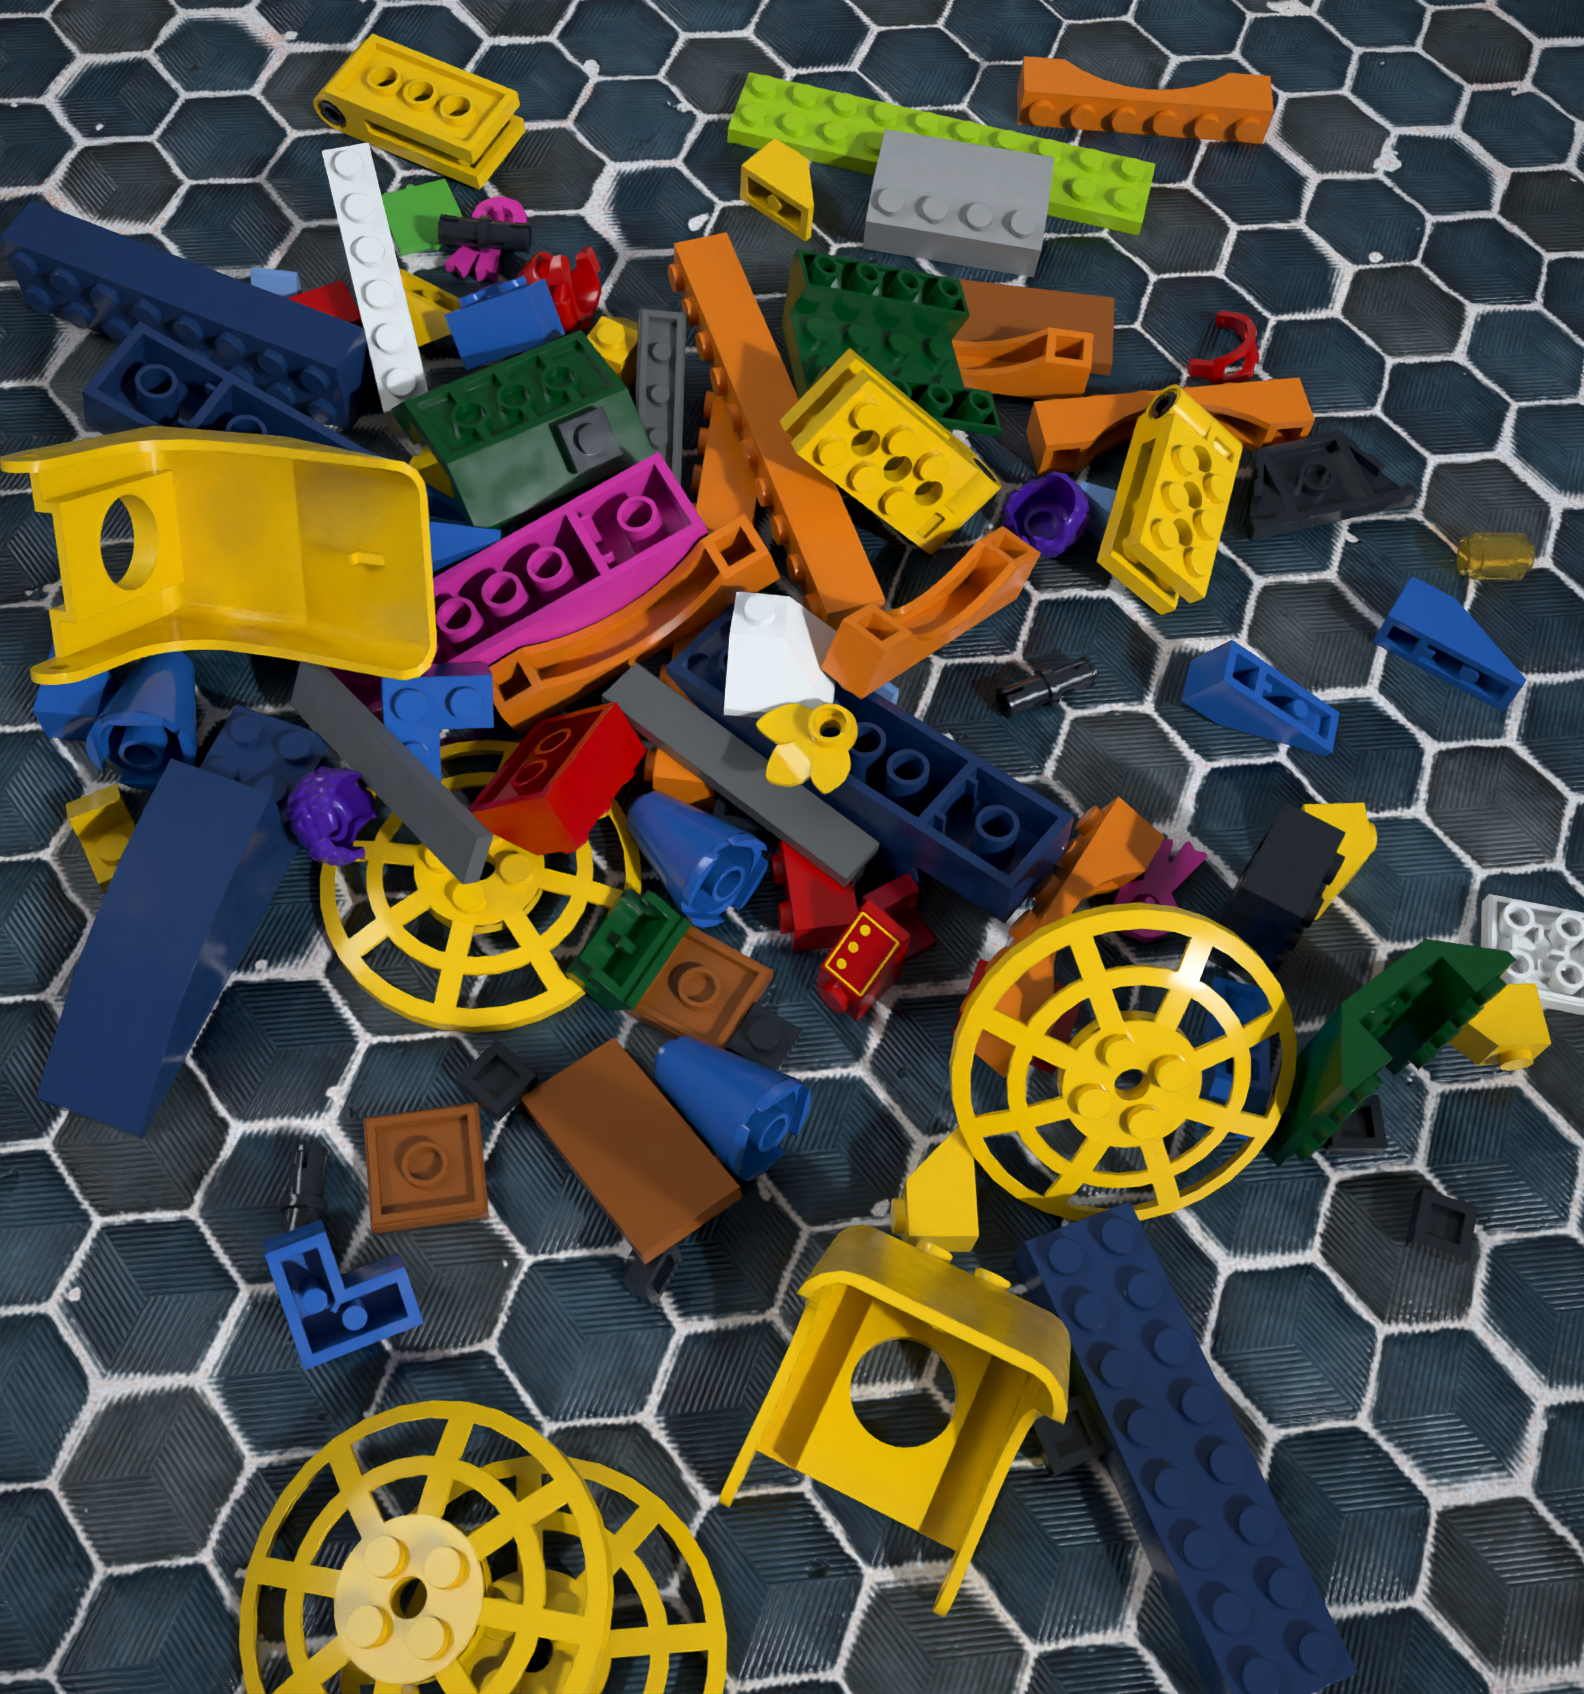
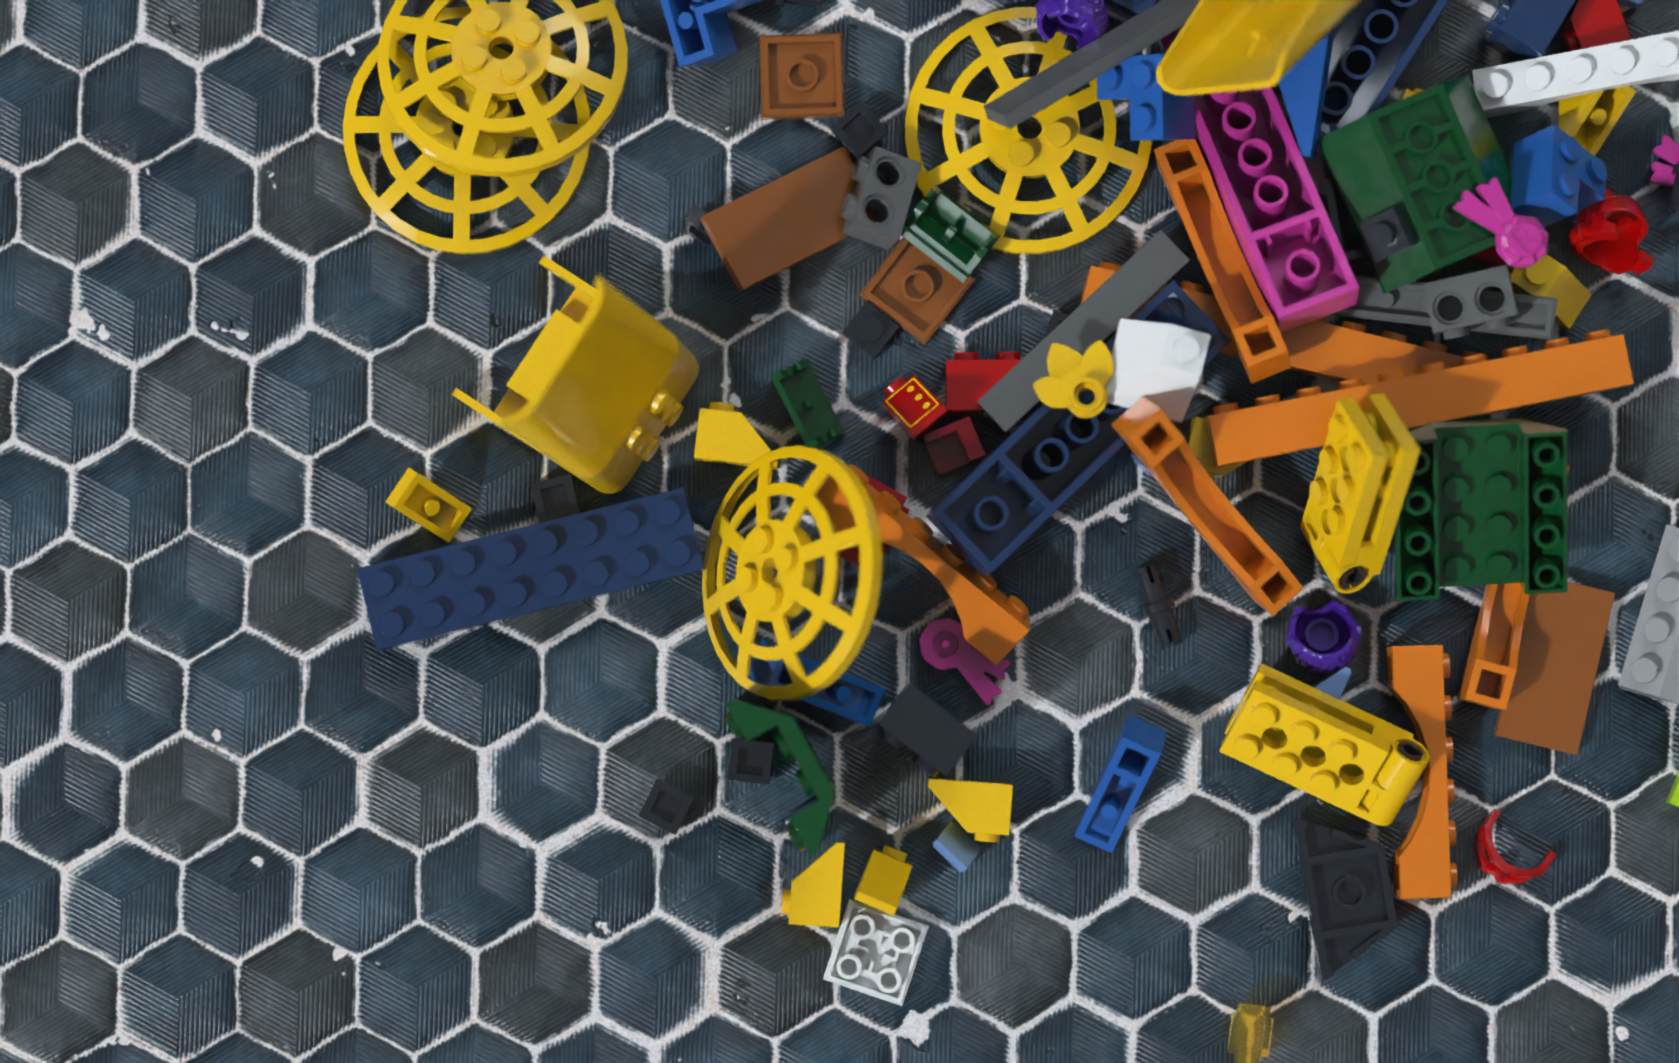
camera: 105 degrees right, 25 degrees up
(560, 780) = (1094, 191): red slope -> none
(577, 319) = (1518, 238): none -> dark pink piece
(589, 1033) = (888, 201): none -> dark grey brick
(657, 378) = (1468, 290): none -> dark grey brick
(697, 856) = (1023, 291): blue cone -> none
(732, 1102) = (818, 295): blue cone -> none
(877, 1108) = (807, 404): none -> dark green hinge
(1114, 1630) = (428, 505): none -> yellow slope
(1386, 873) = (956, 846): none -> medium blue slope
(1448, 643) = (1173, 954): blue slope -> none
(1473, 923) = (884, 879): none -> yellow slope

